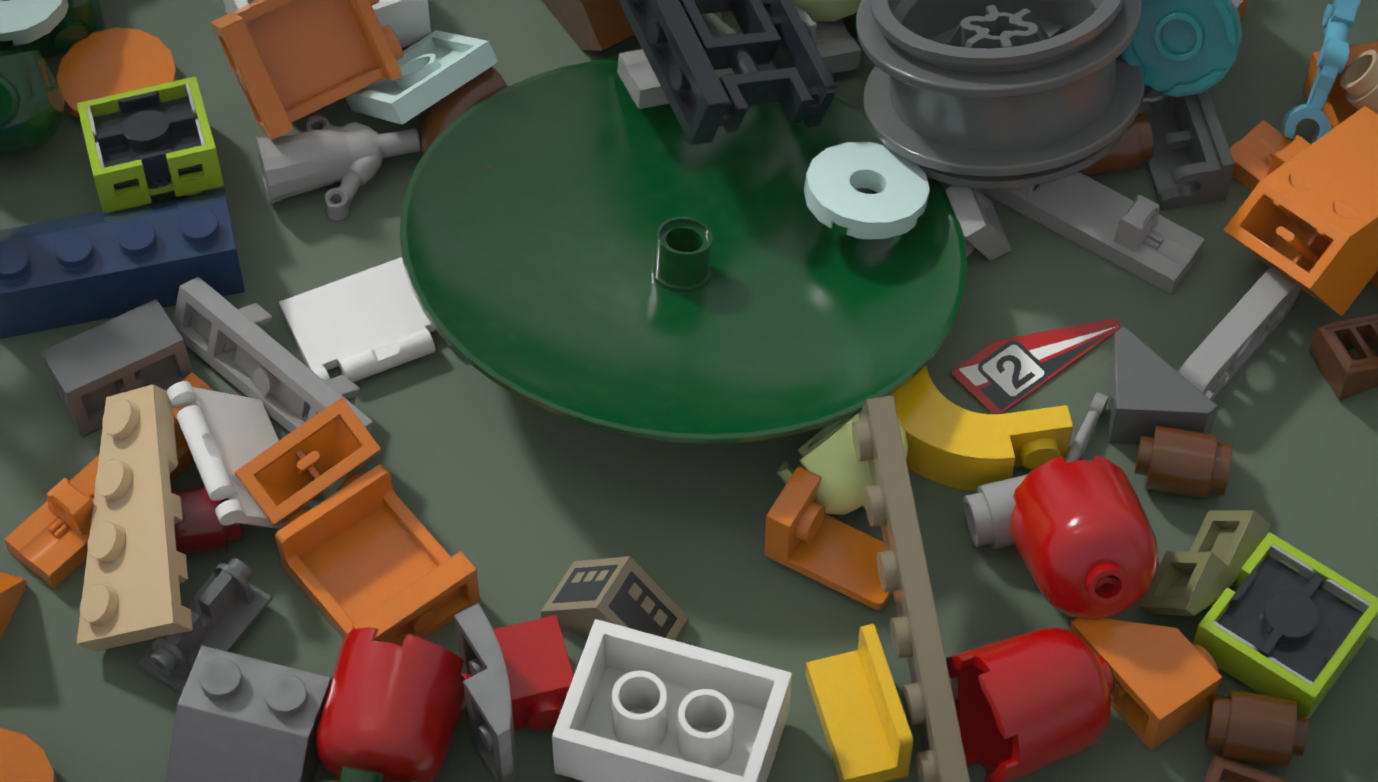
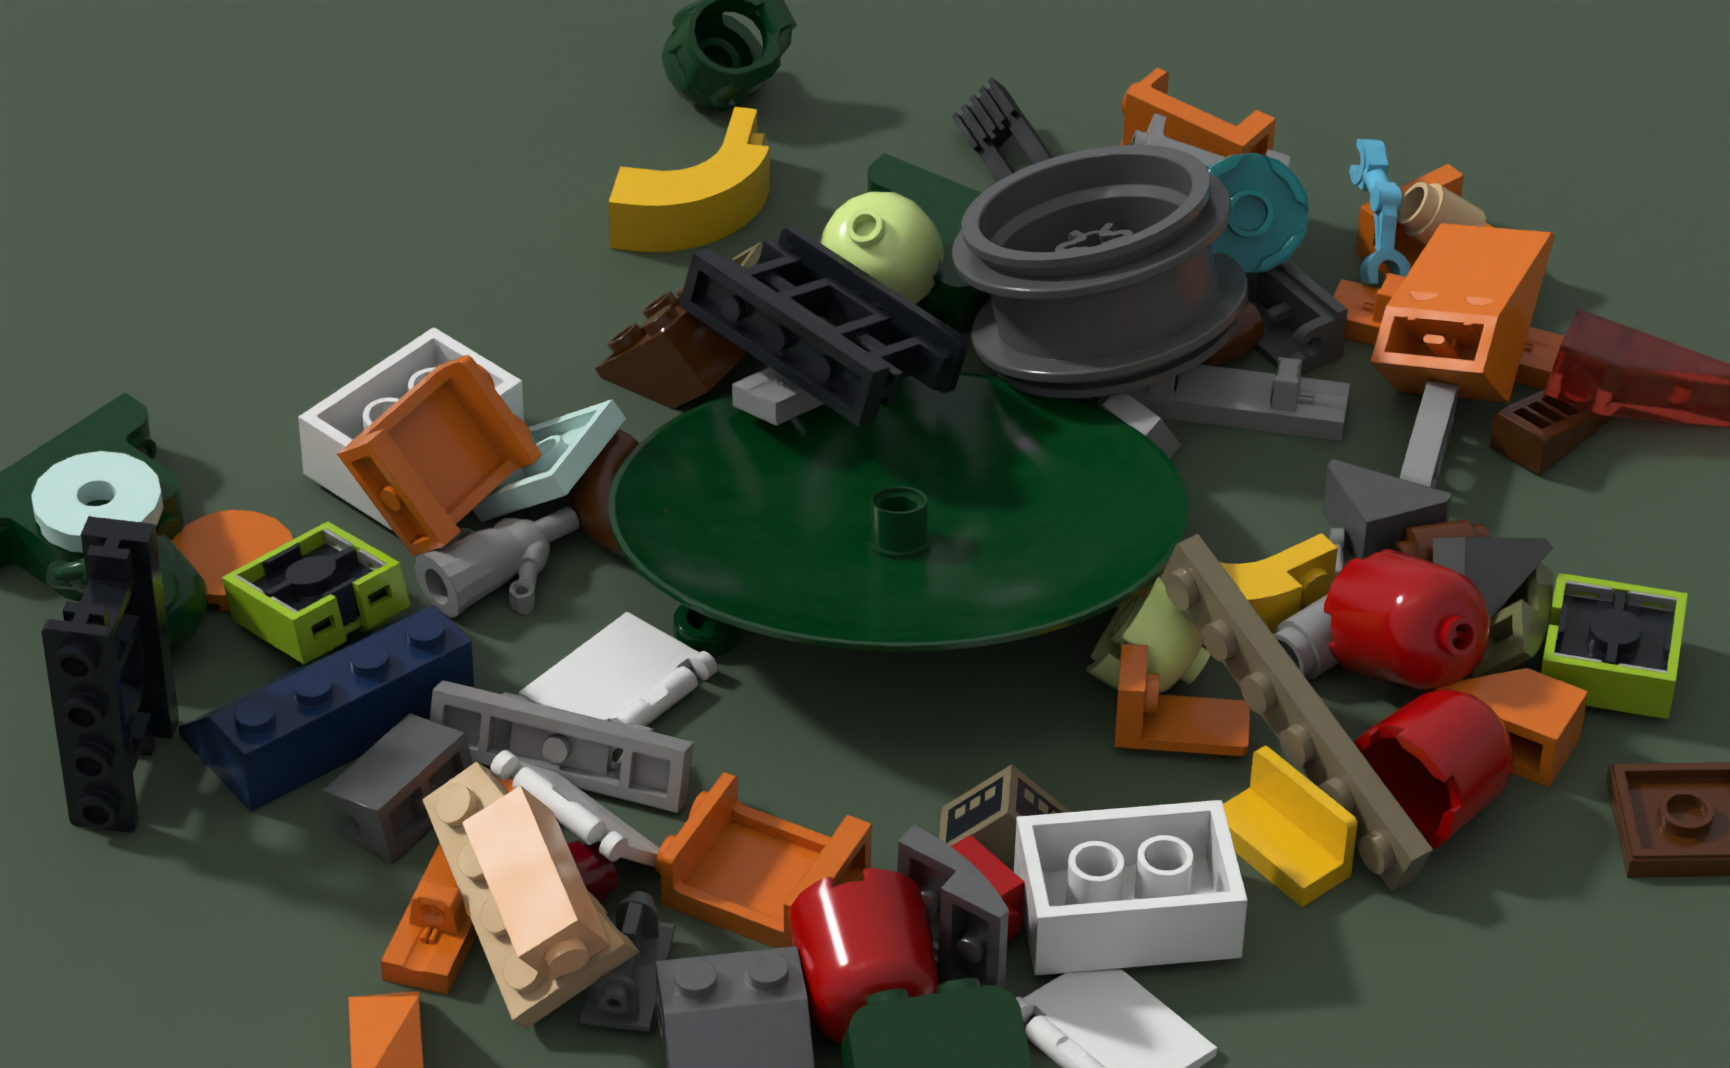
camera: 25 degrees left, 15 degrees down
(123, 537) = (536, 884): none -> light nougat brick
(308, 463) = (658, 787): orange slope -> none
(843, 168) = (1036, 420): light aqua tile -> none
(1020, 364) = (1253, 528): sticker -> none
(1198, 503) = (1492, 563): none -> dark grey slope
(1256, 728) = (1633, 730): reddish brown brick -> none

